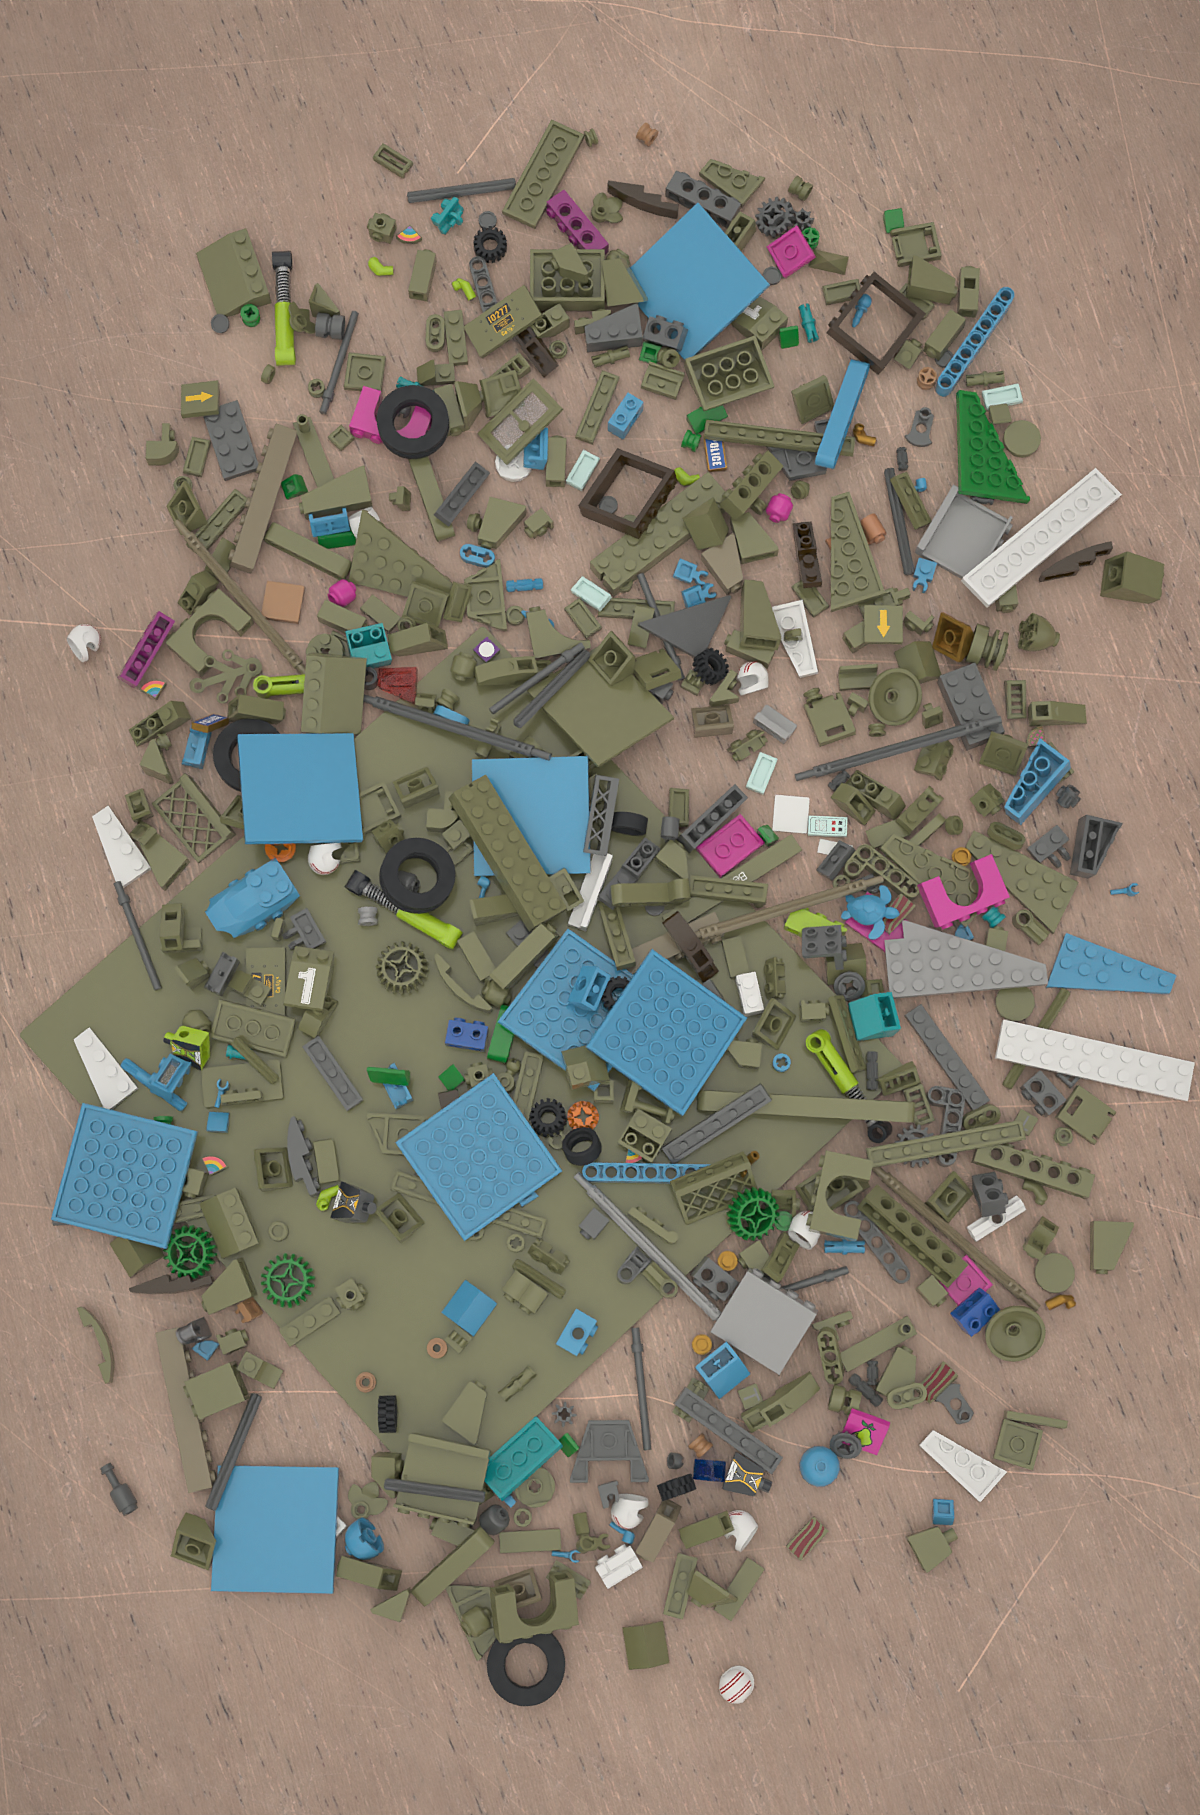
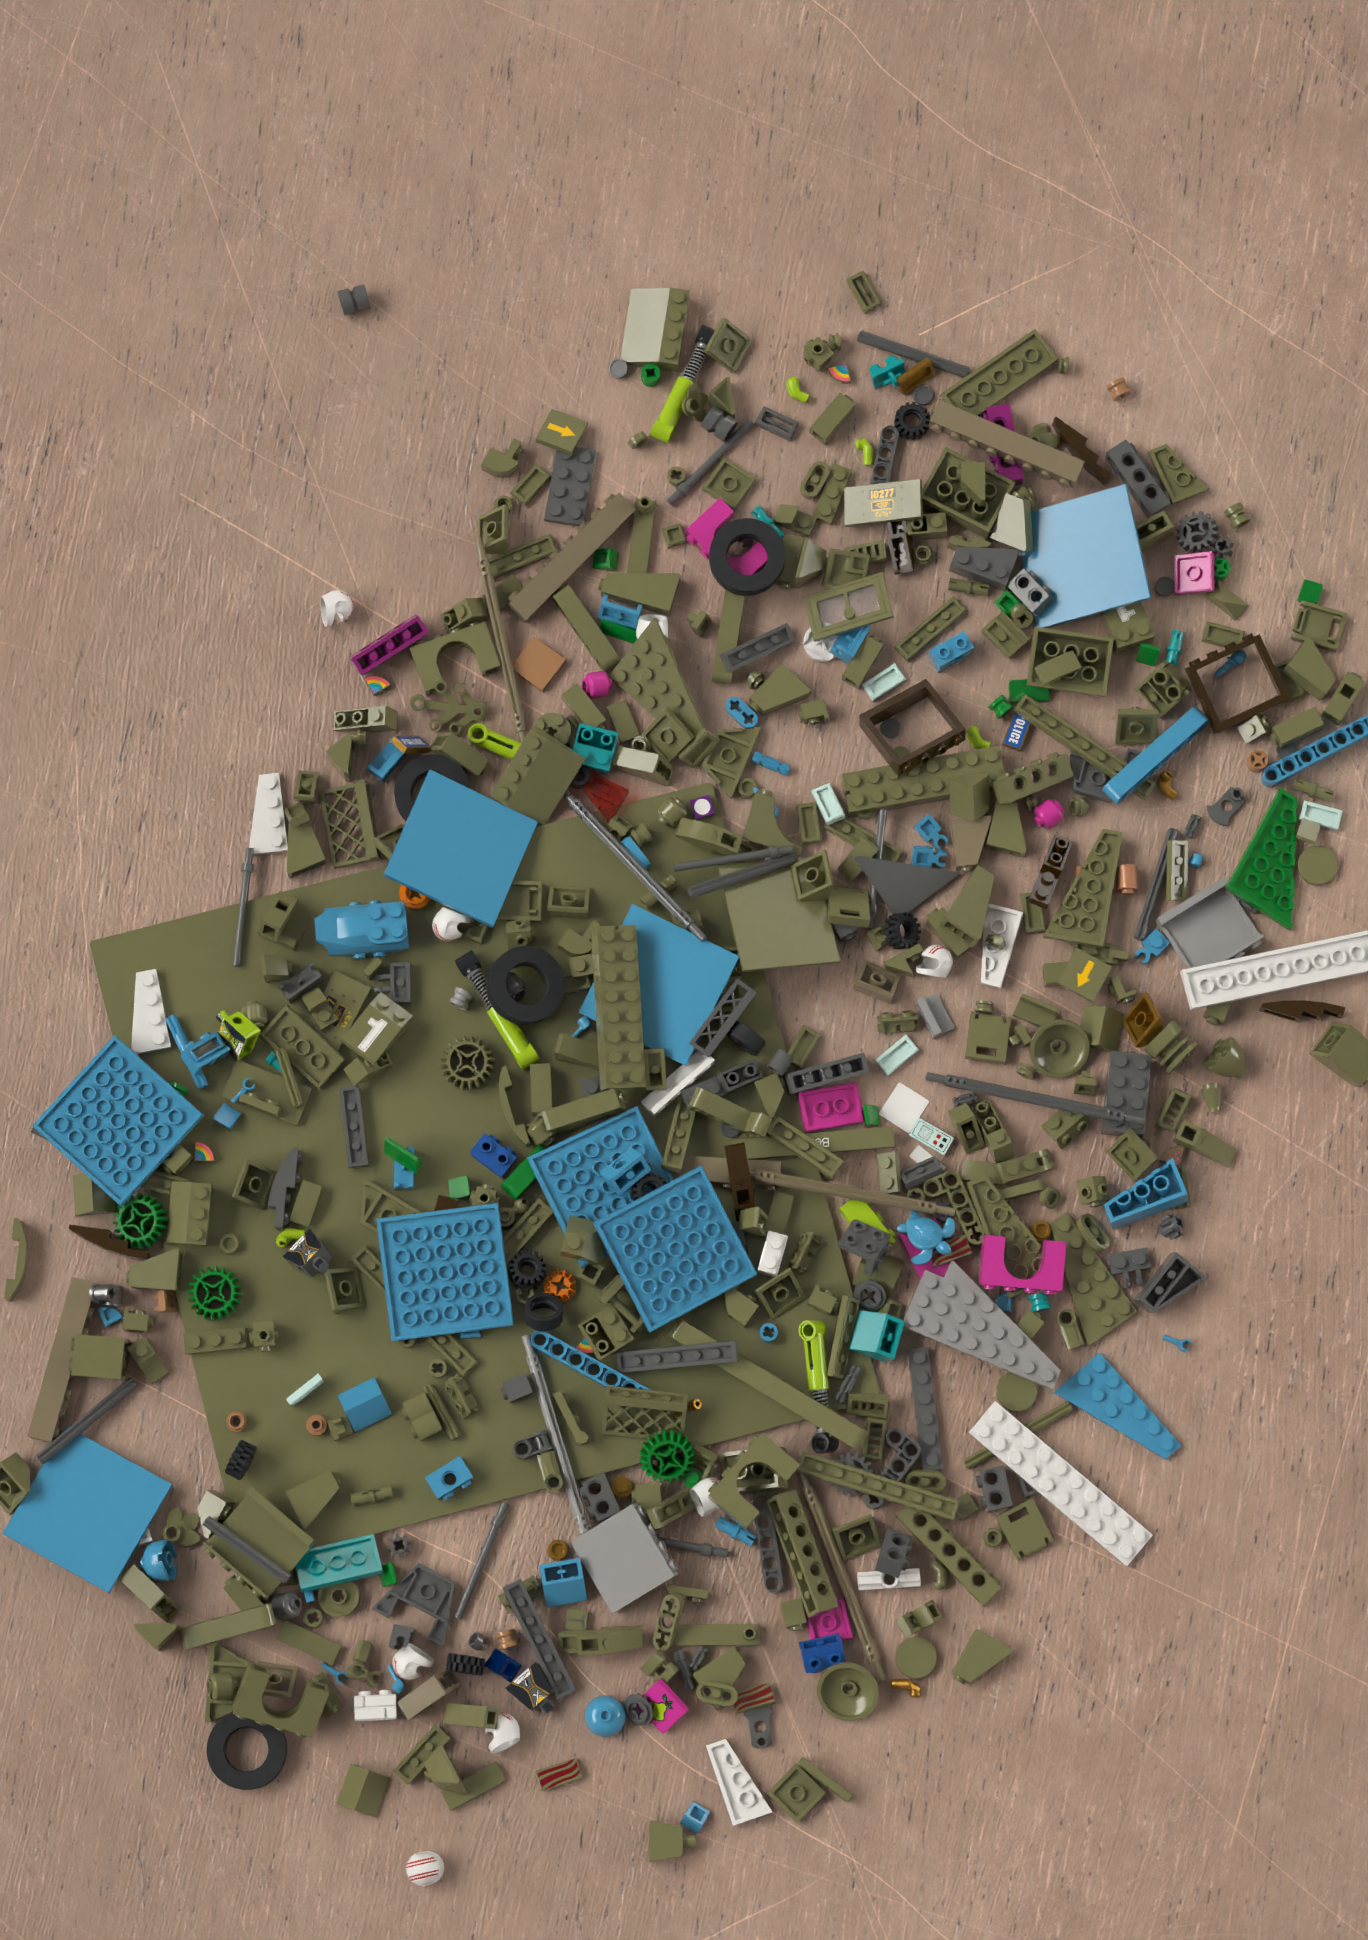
camera: 25 degrees right, 0 degrees up
(303, 258) = (728, 345): none -> olive tile
(376, 306) = (791, 431): none -> dark grey tile
(391, 211) = (835, 342): none -> olive bush
(411, 1323) = (305, 1390): none -> light aqua tile
(473, 206) = (915, 376): none -> pearl gold tile
(580, 221) = (1006, 444): none -> dark tan brick
(719, 975) = (753, 1221): none -> olive slope
(723, 381) = (1057, 668): none -> olive slope
(809, 874) = (889, 1172): none -> olive plate
(817, 356) = (1164, 687): none -> olive slope
(1041, 670) = (1212, 1096): none -> olive cone

